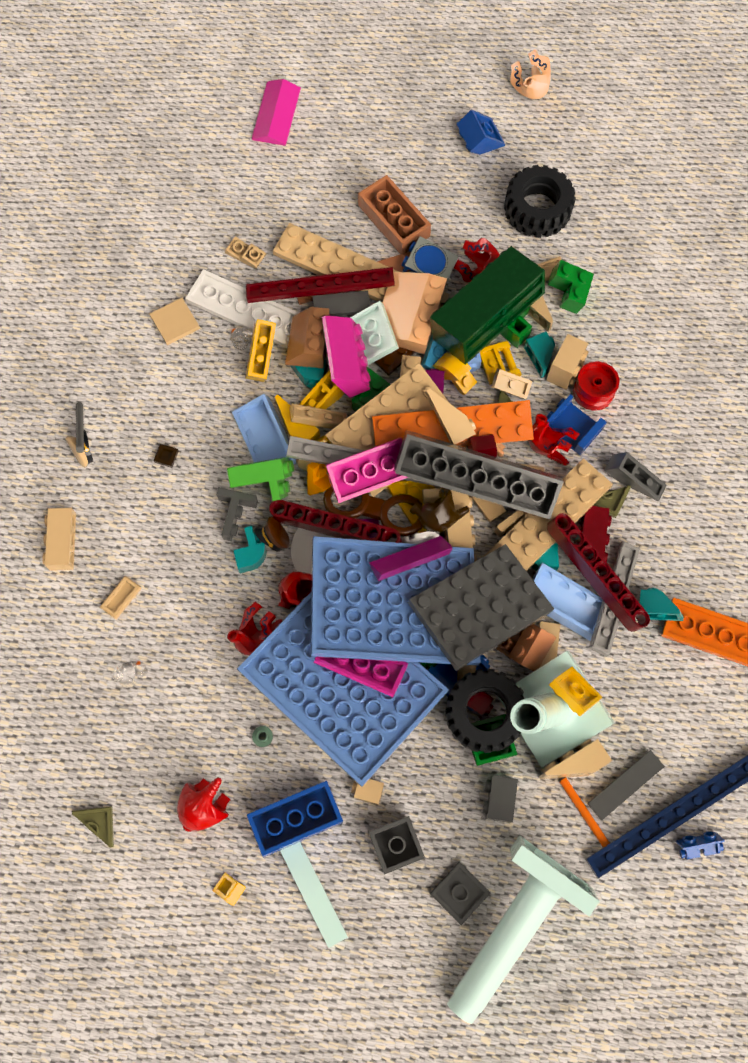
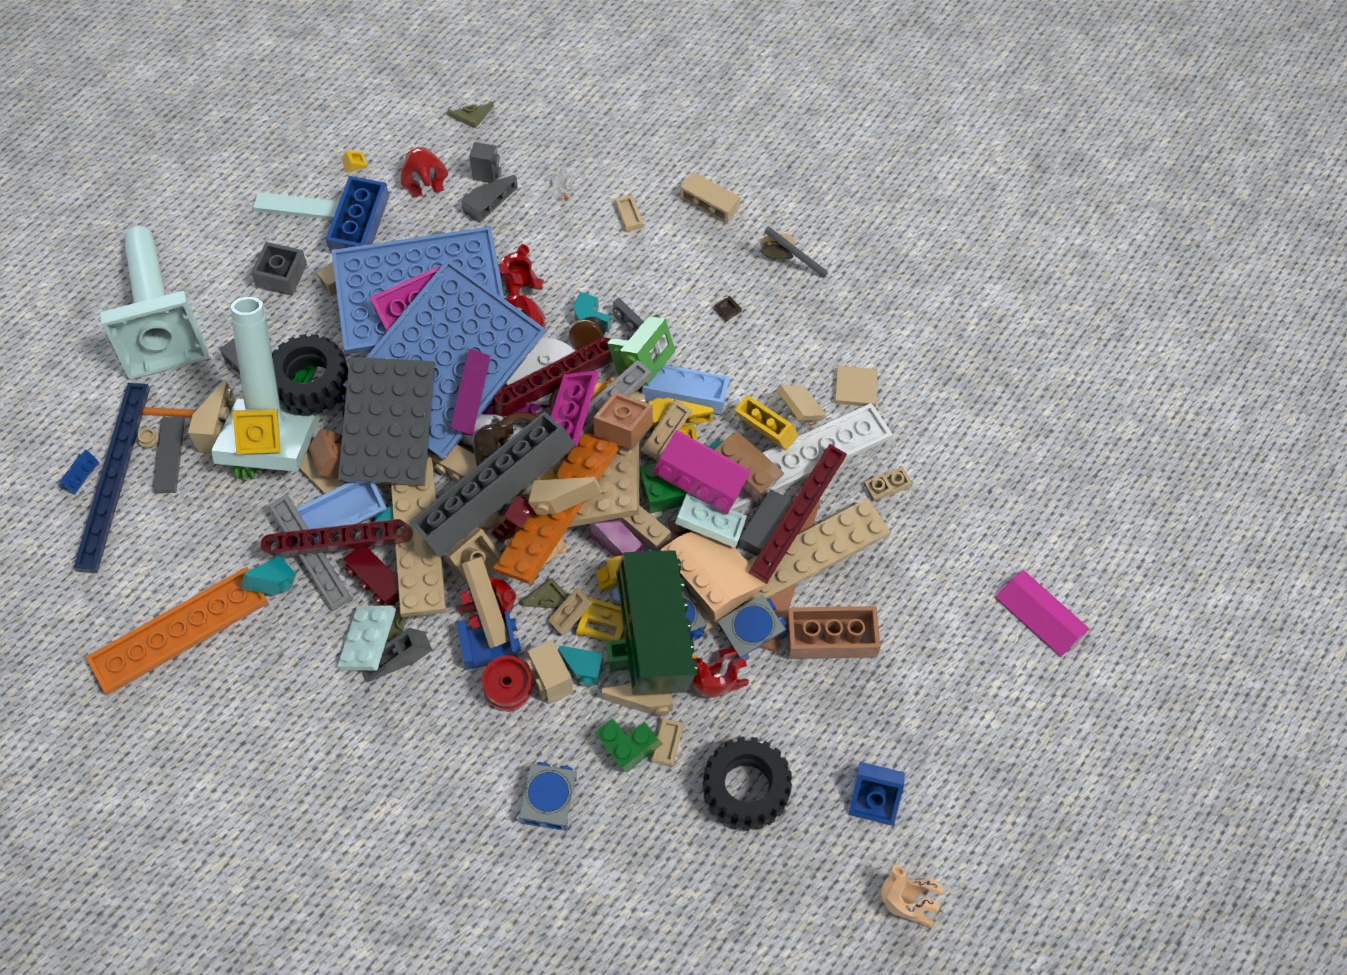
camera: 125 degrees right, 10 degrees down
(155, 751) = (484, 162): none -> dark grey brick
(196, 727) = (487, 198): none -> dark grey slope
(222, 341) = (801, 403): none -> tan tile
(352, 421) = (623, 420): none -> nougat container
(460, 893) = (211, 293): dark grey tile -> none
(557, 434) = (485, 602): none -> tan tile
(627, 816) = (148, 437): none -> tan plate
(641, 503) = (366, 638): none -> light aqua plate
(643, 310) = (548, 796): none -> panel

